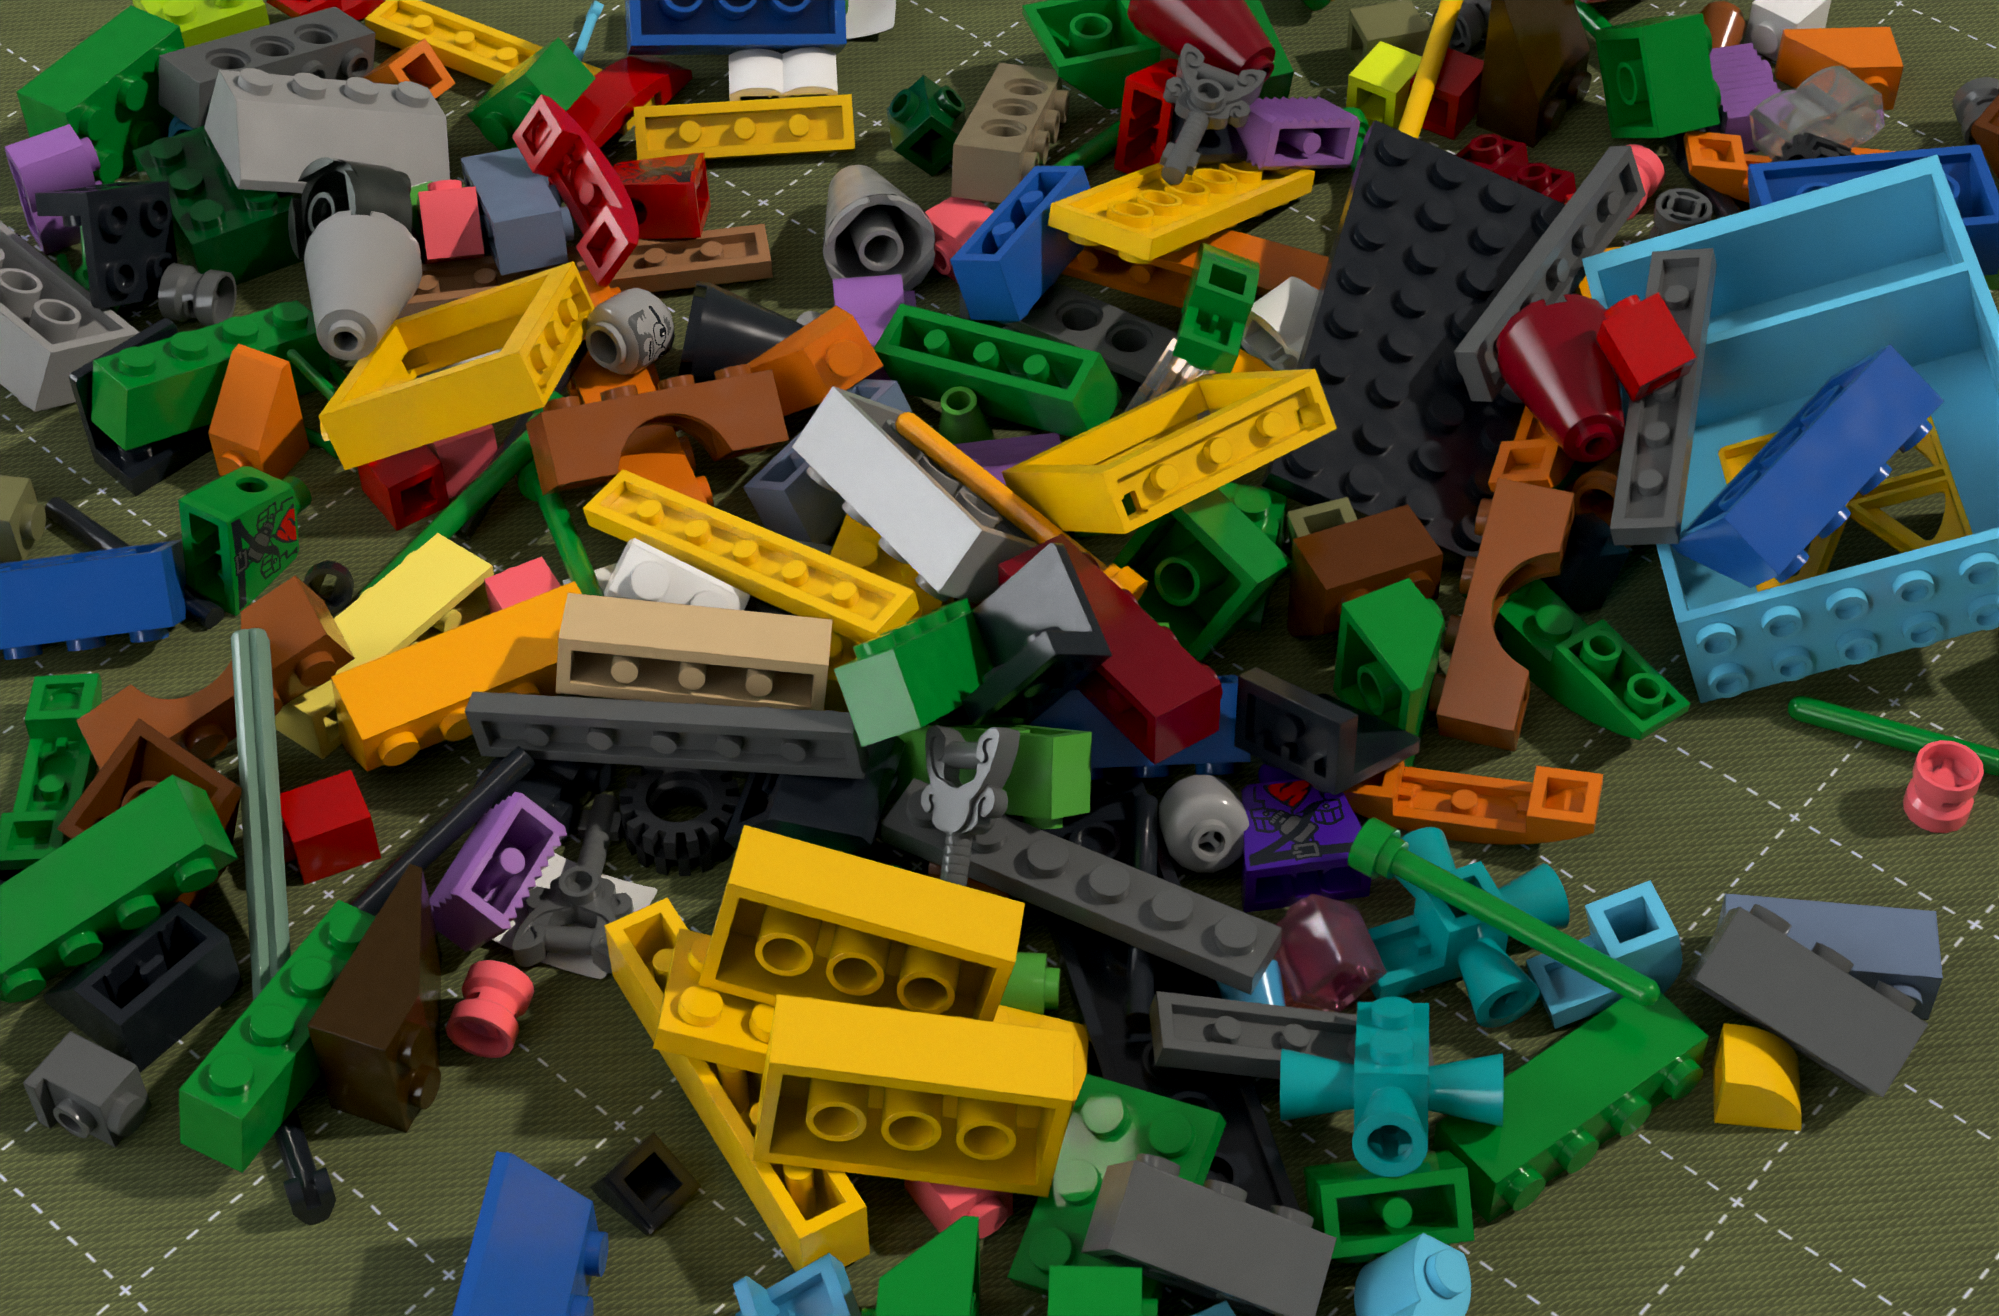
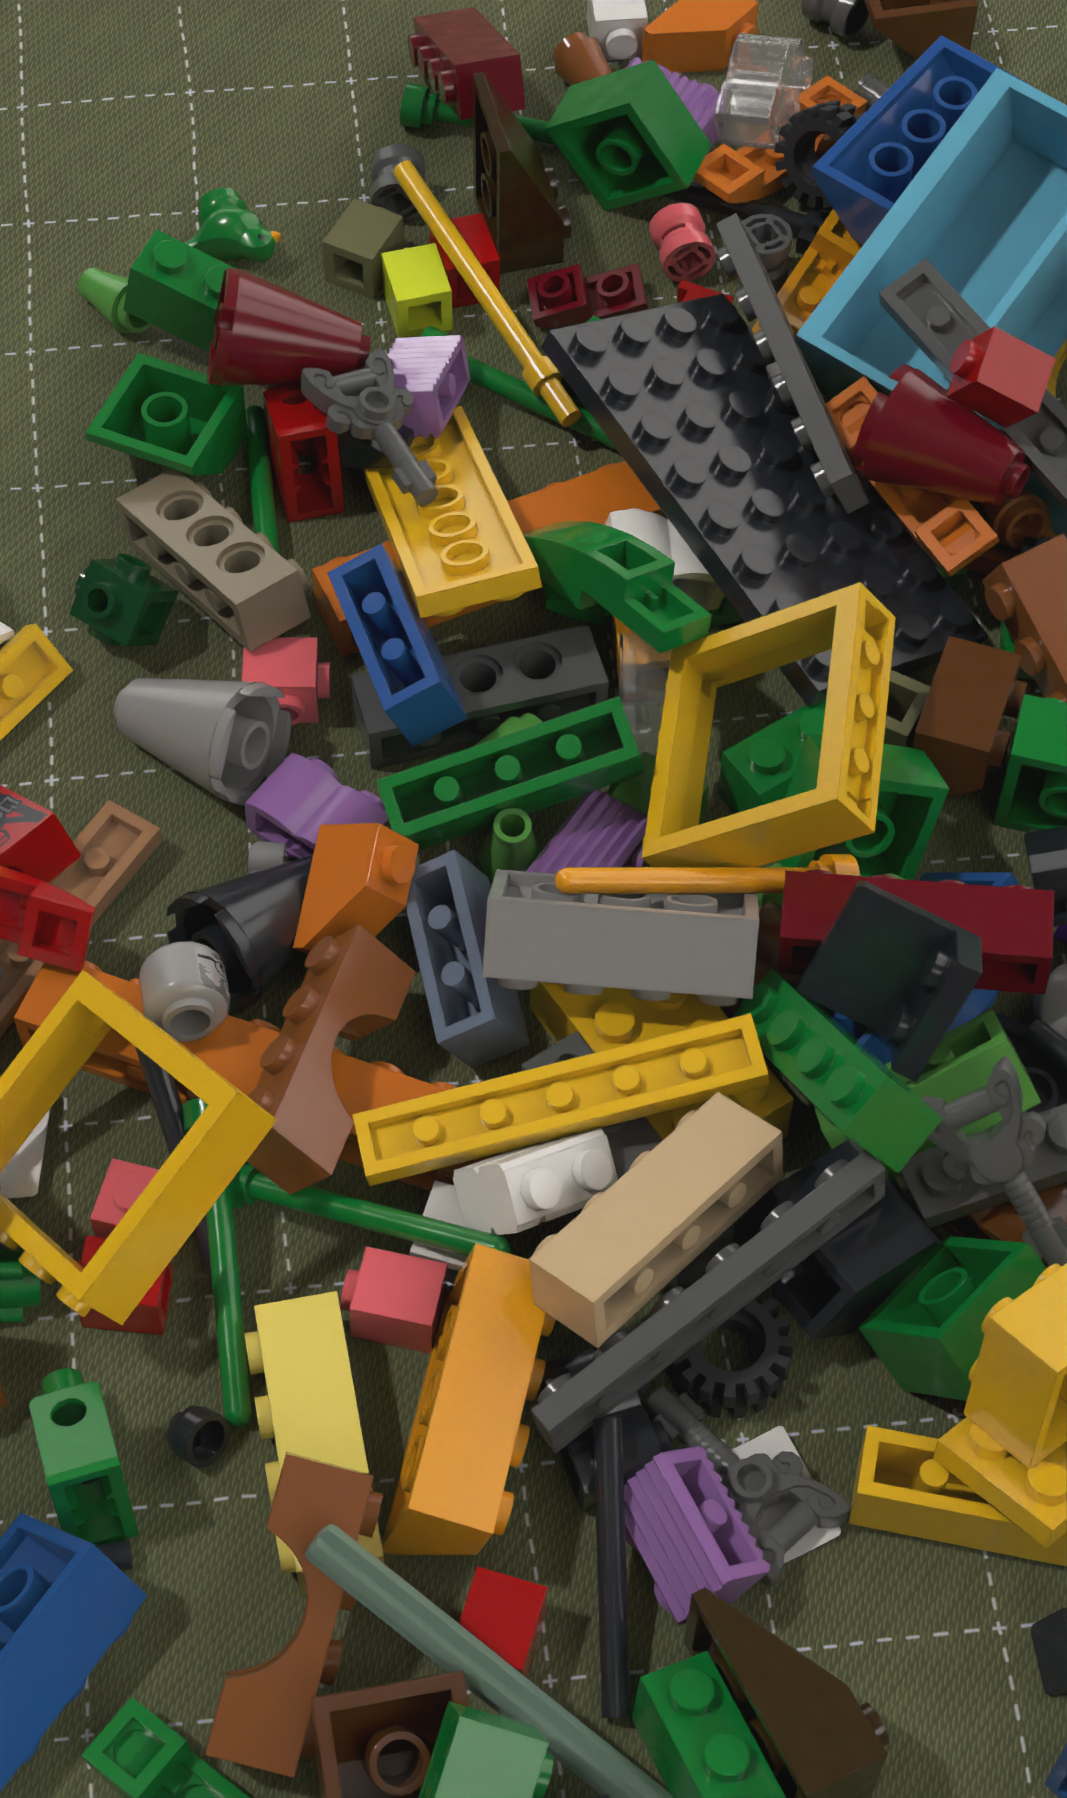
camera: 50 degrees left, 10 degrees up
(488, 1014) = (820, 1634): coral wheel -> none

